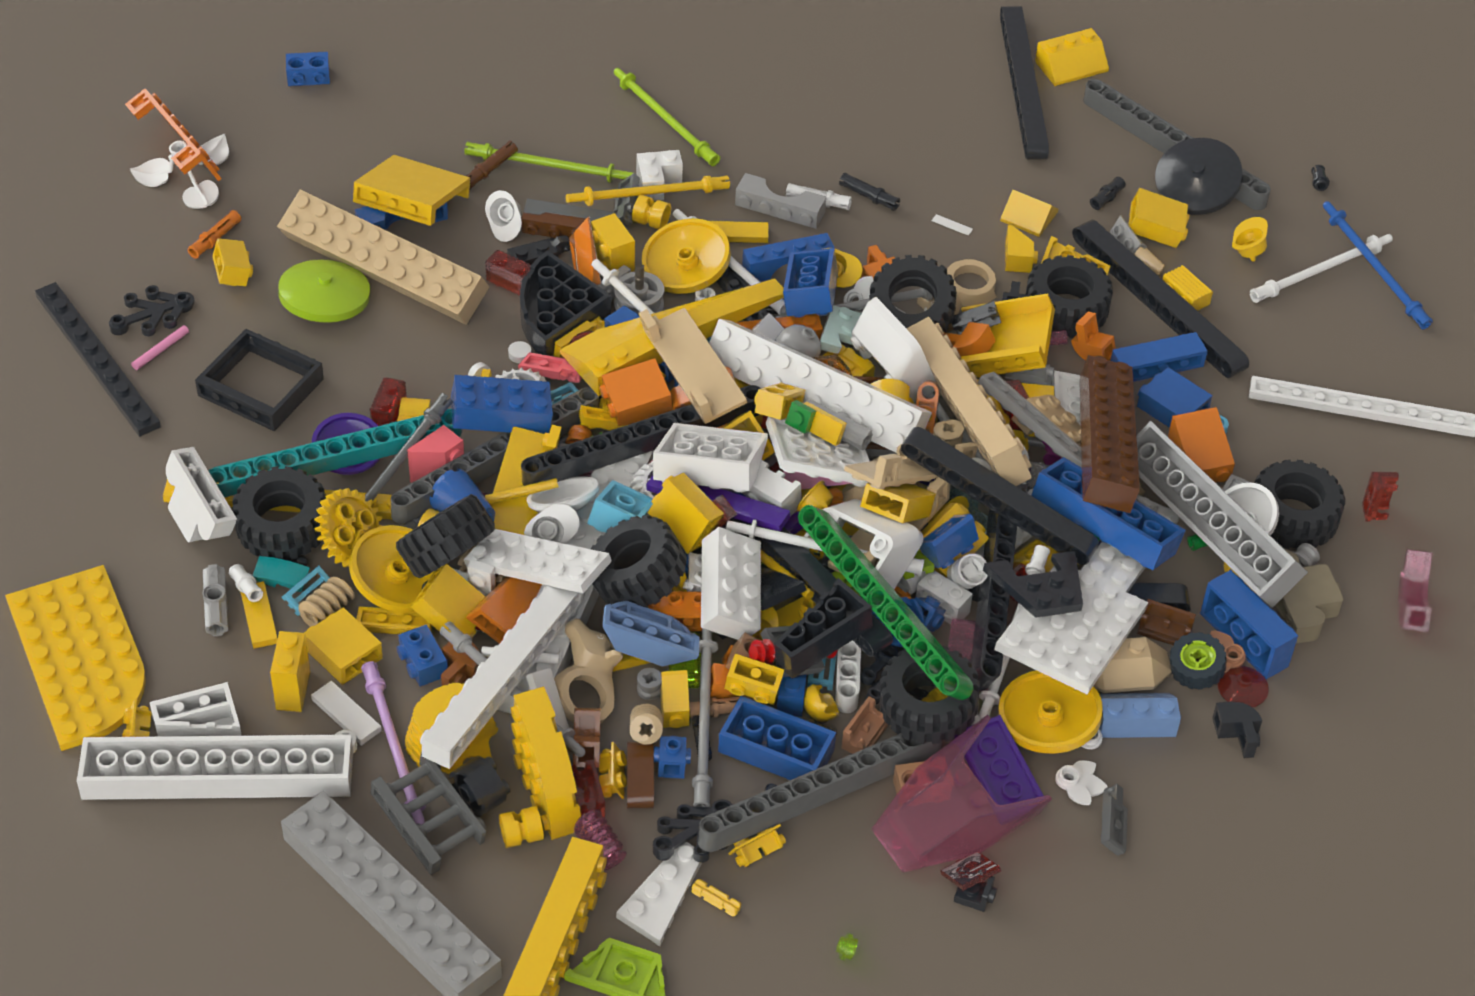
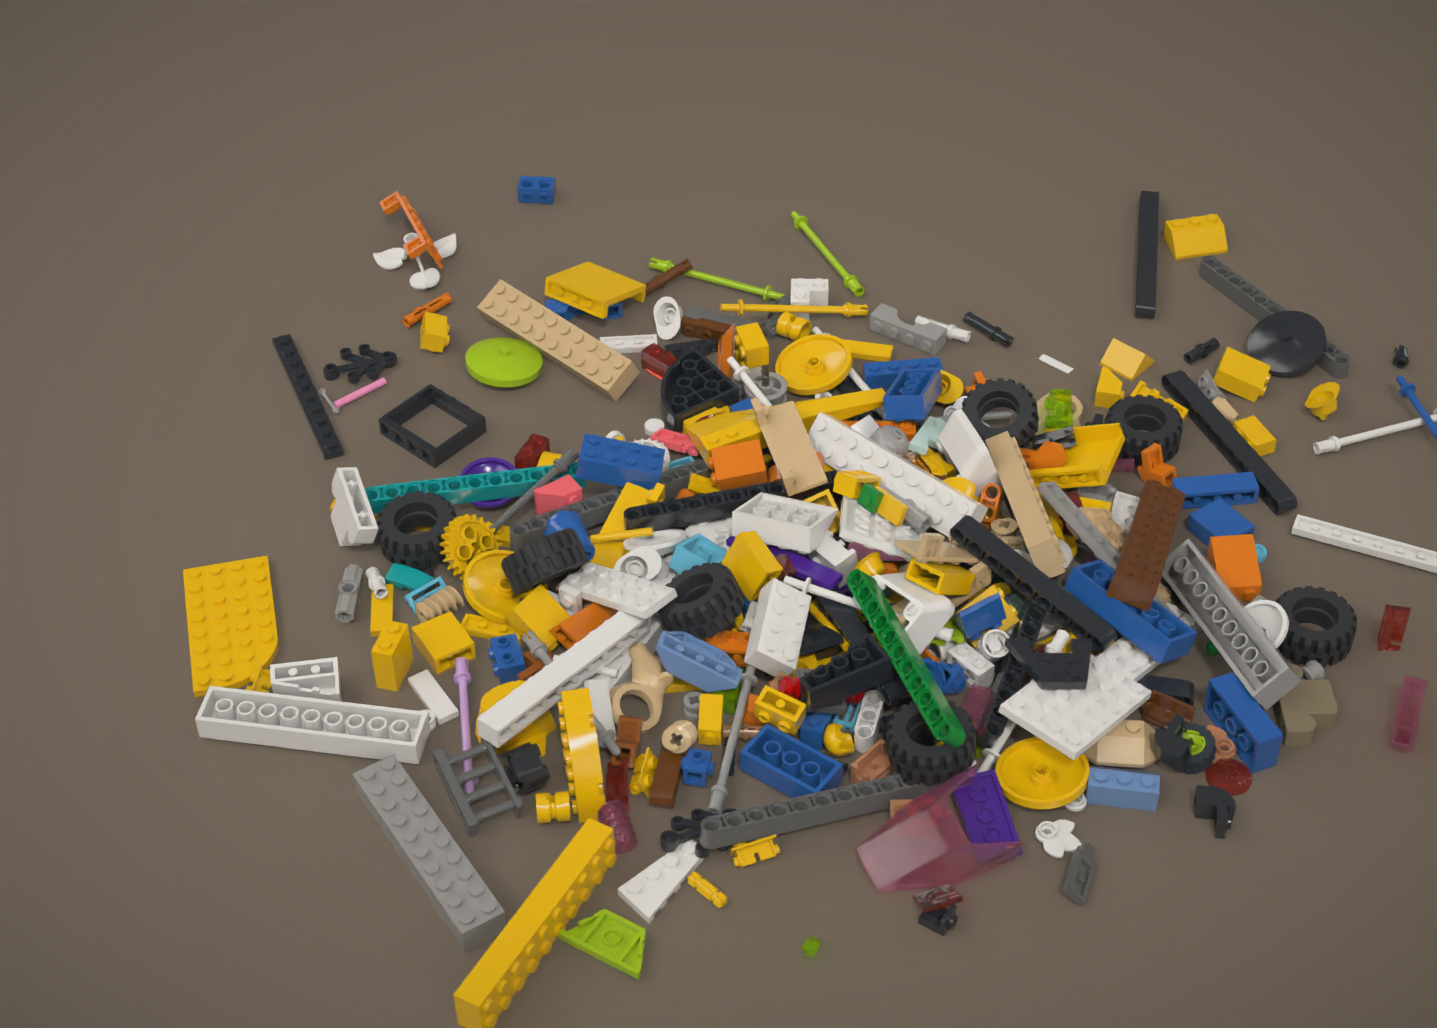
camera: 15 degrees right, 5 degrees down
(115, 352) = (322, 392): none -> light grey hinge
(466, 251) = (629, 344): none -> white tile
(974, 282) = (1059, 409): none -> clear neon green brick
(1181, 664) = (1171, 746): none -> black brick

